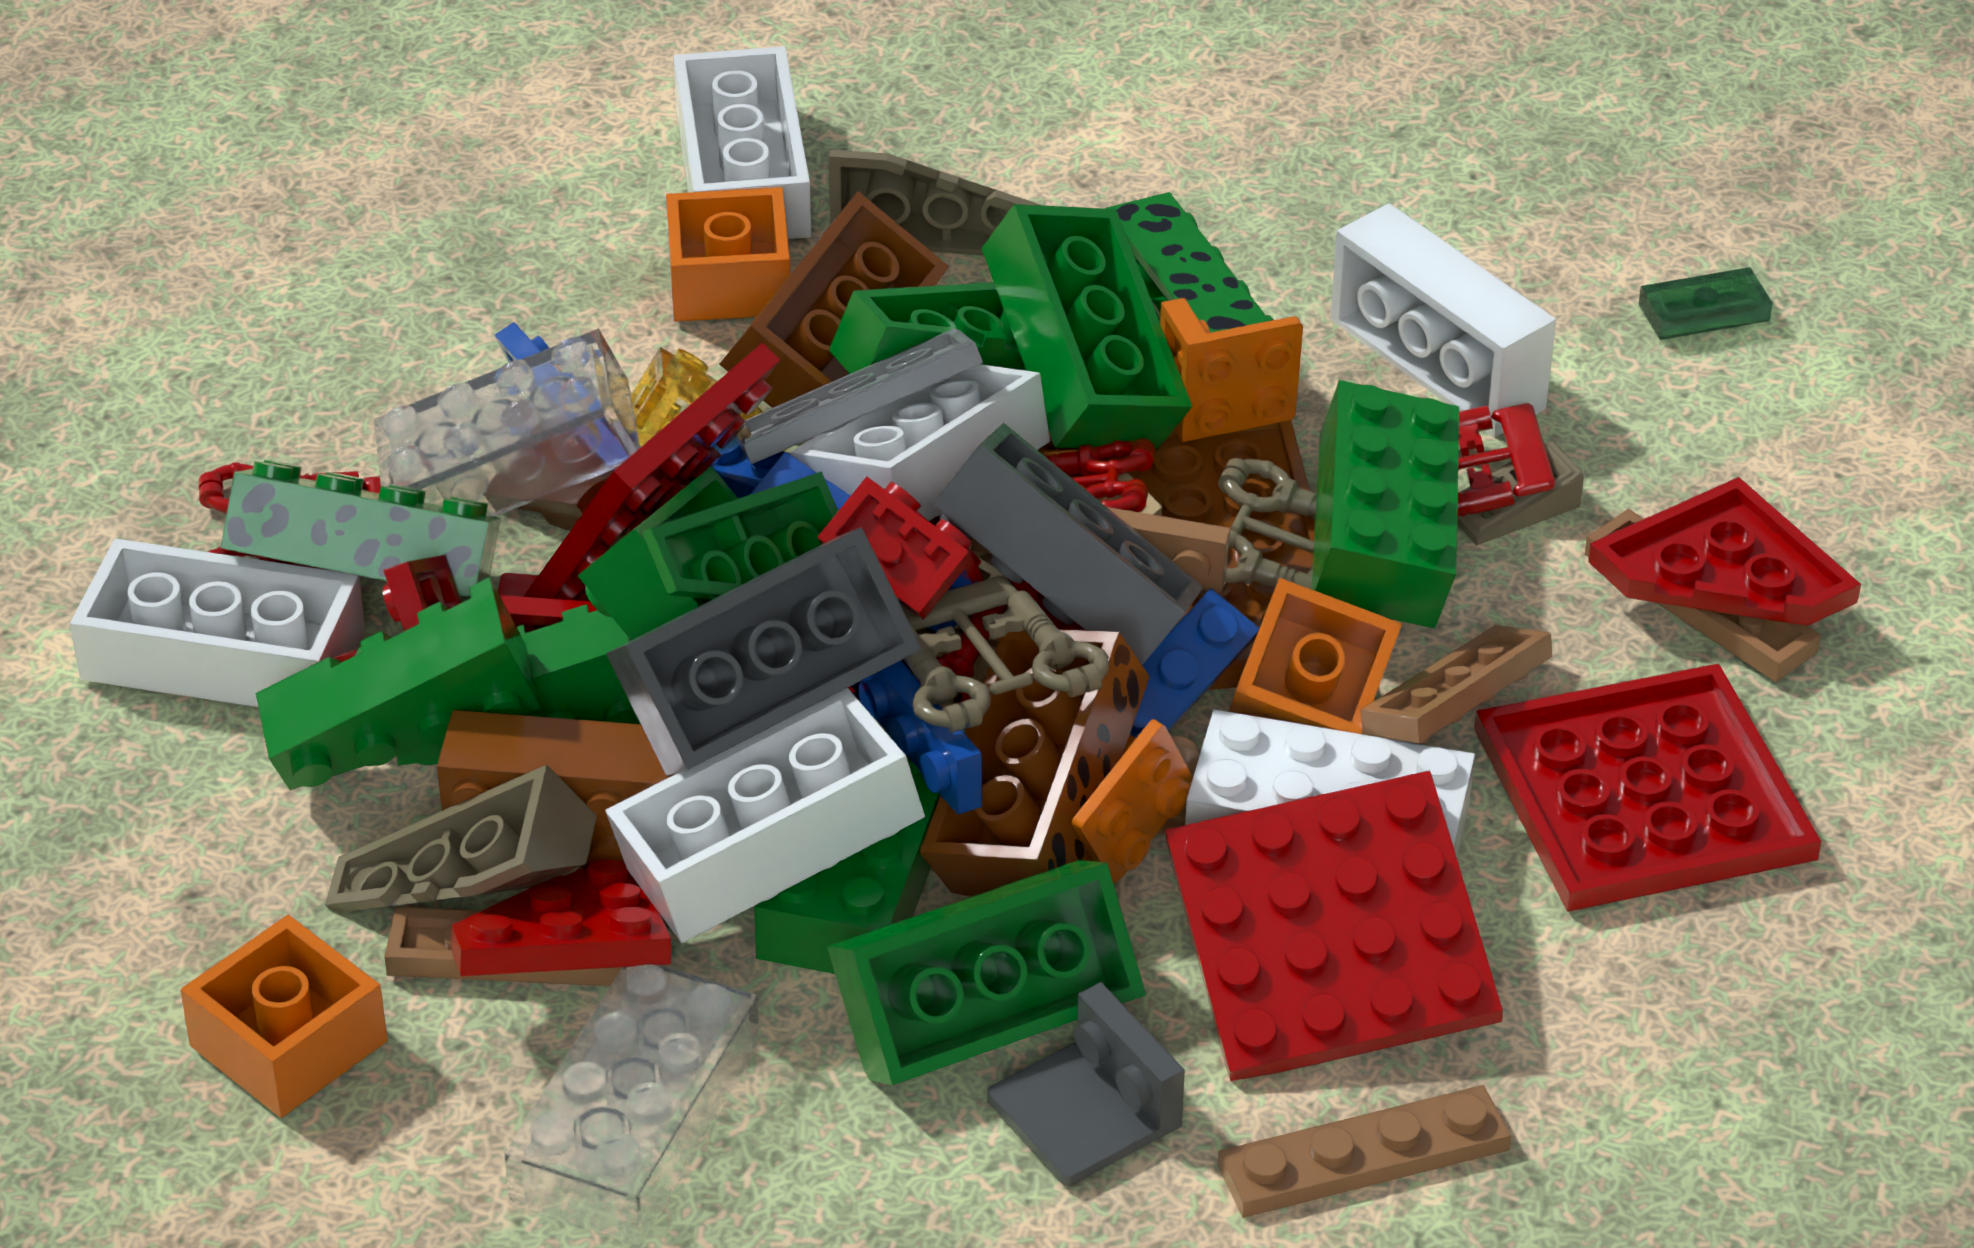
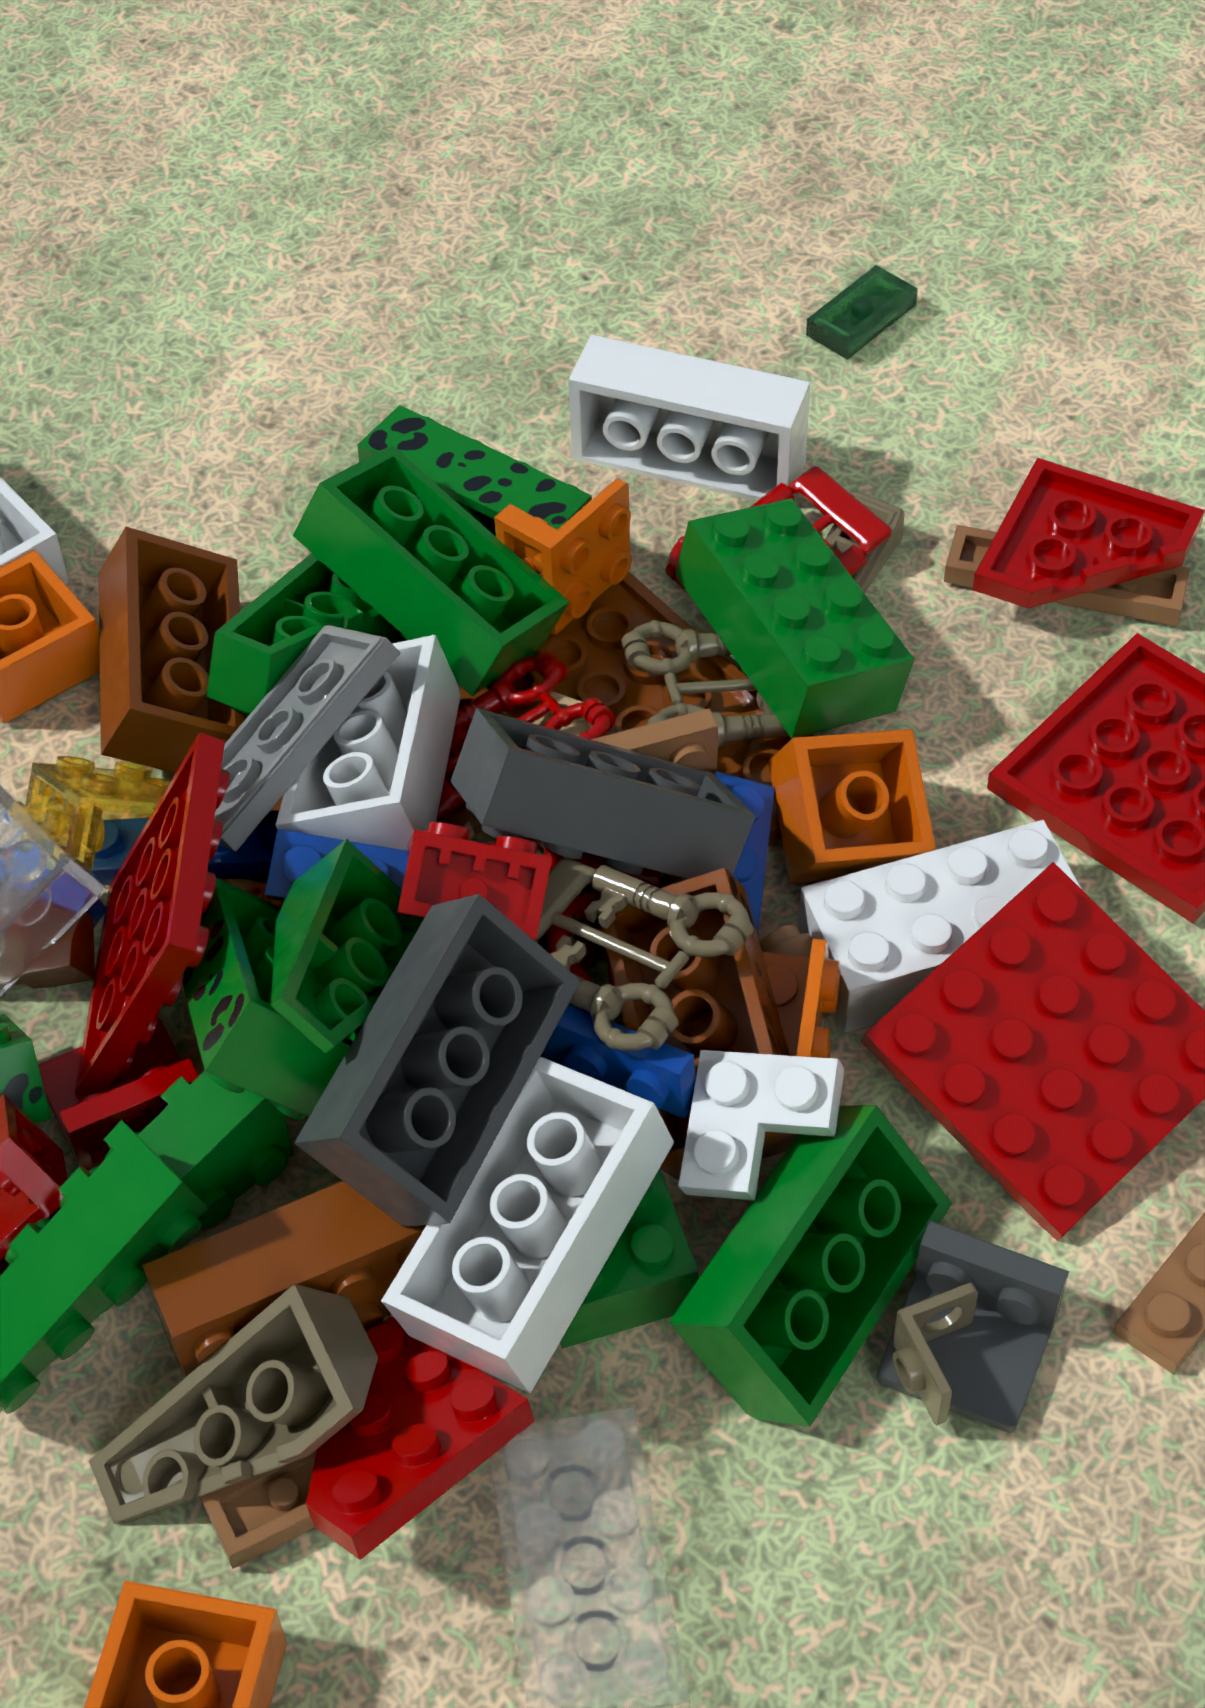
camera: 30 degrees left, 10 degrees up
(929, 204) = (176, 506): dark tan wedge -> none
(1002, 816) = (739, 1101): none -> white plate
(1030, 1069) = (913, 1357): none -> dark tan bracket
(1456, 684) = (964, 759): medium nougat plate -> none

